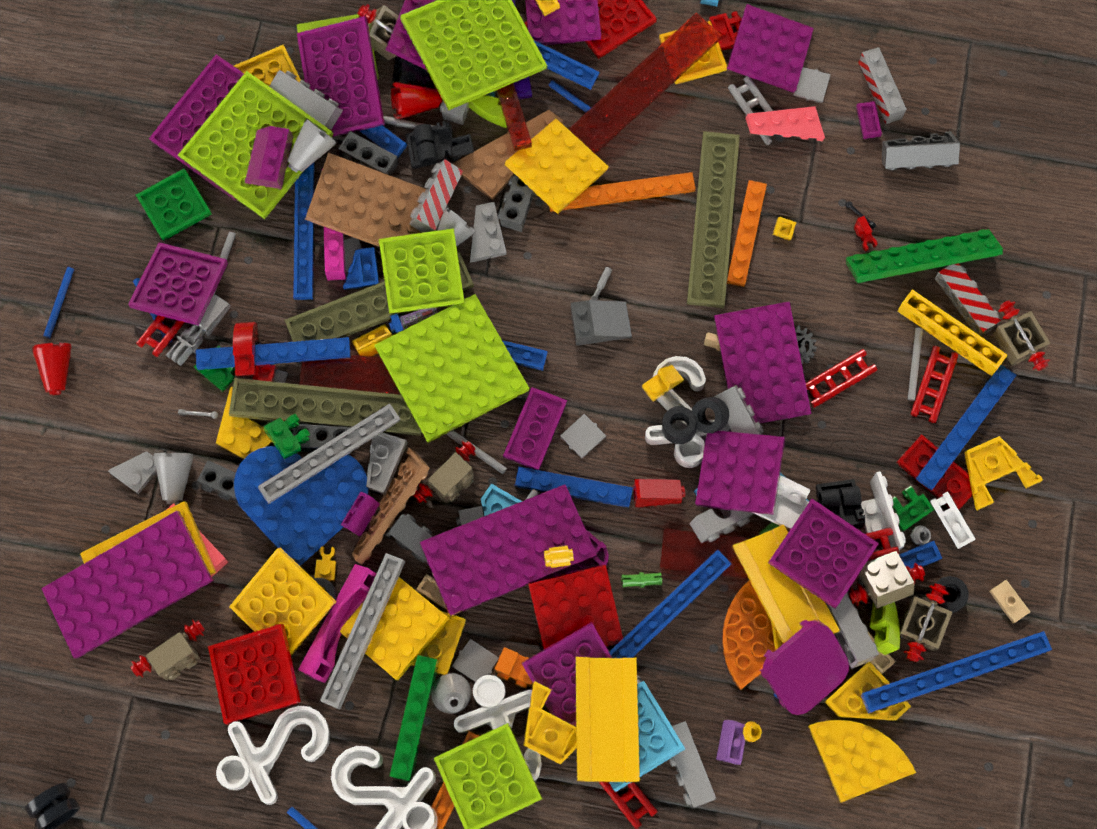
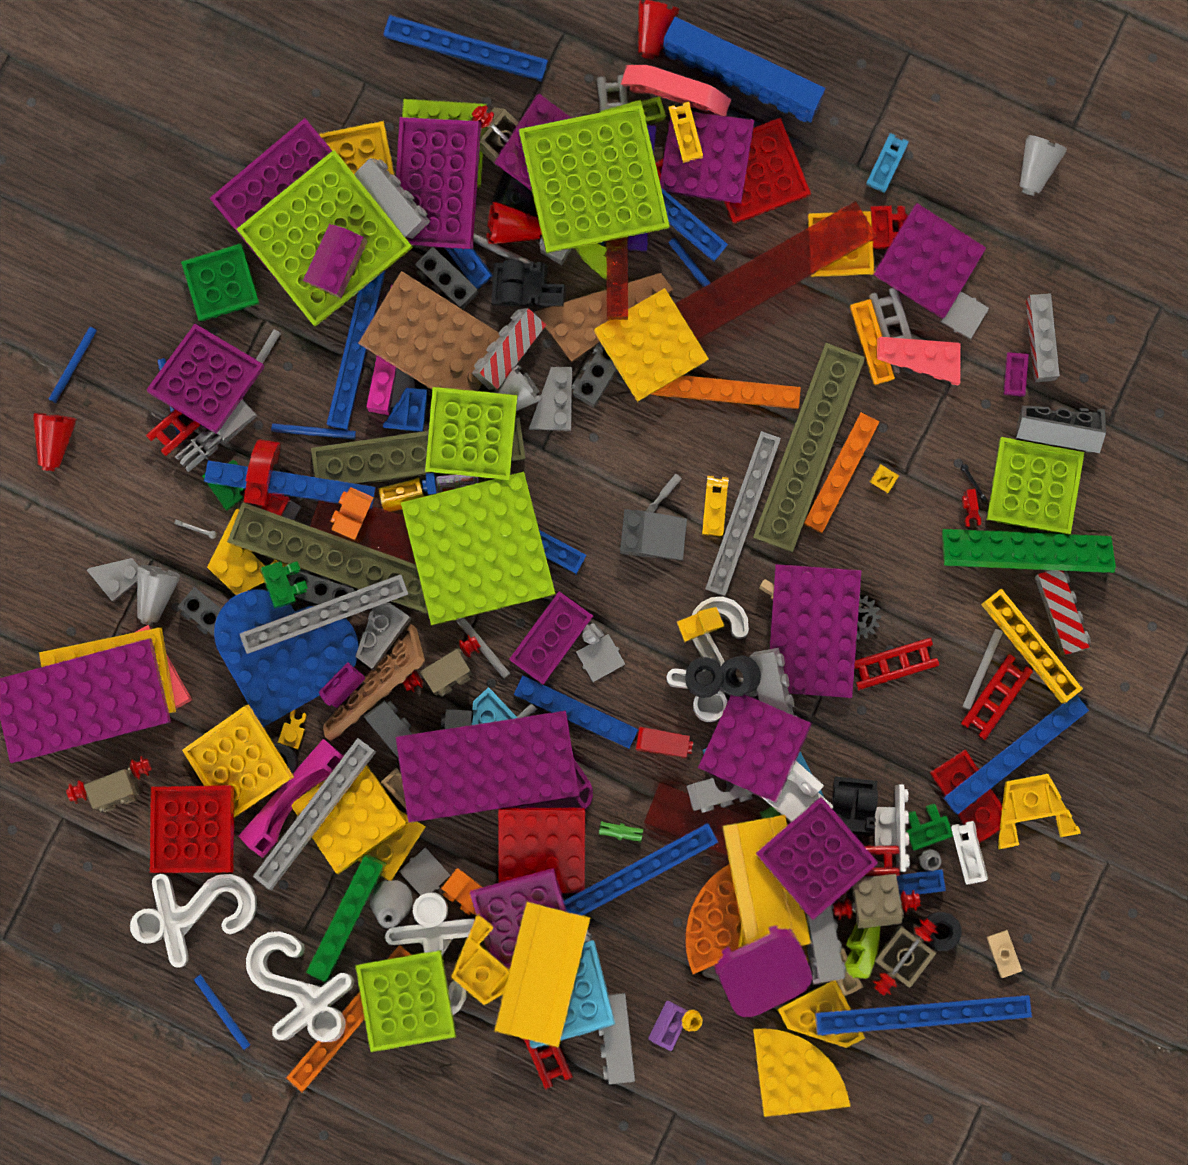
camera: 15 degrees right, 10 degrees up
(283, 307) = (313, 431): none -> blue bar
(309, 146) = (382, 260): light grey cone -> none
(333, 361) = (352, 512): none -> orange brick
(558, 556) = (536, 790): yellow brick -> none
(570, 416) = (592, 633): none -> light grey plate
(647, 286) = (715, 507): none -> yellow plate
(672, 286) = (742, 514): none -> light grey plate
(737, 118) = (868, 333): none -> light orange plate
(912, 204) = (1035, 486): none -> lime plate
(1022, 337) = (1106, 671): dark tan brick -> none

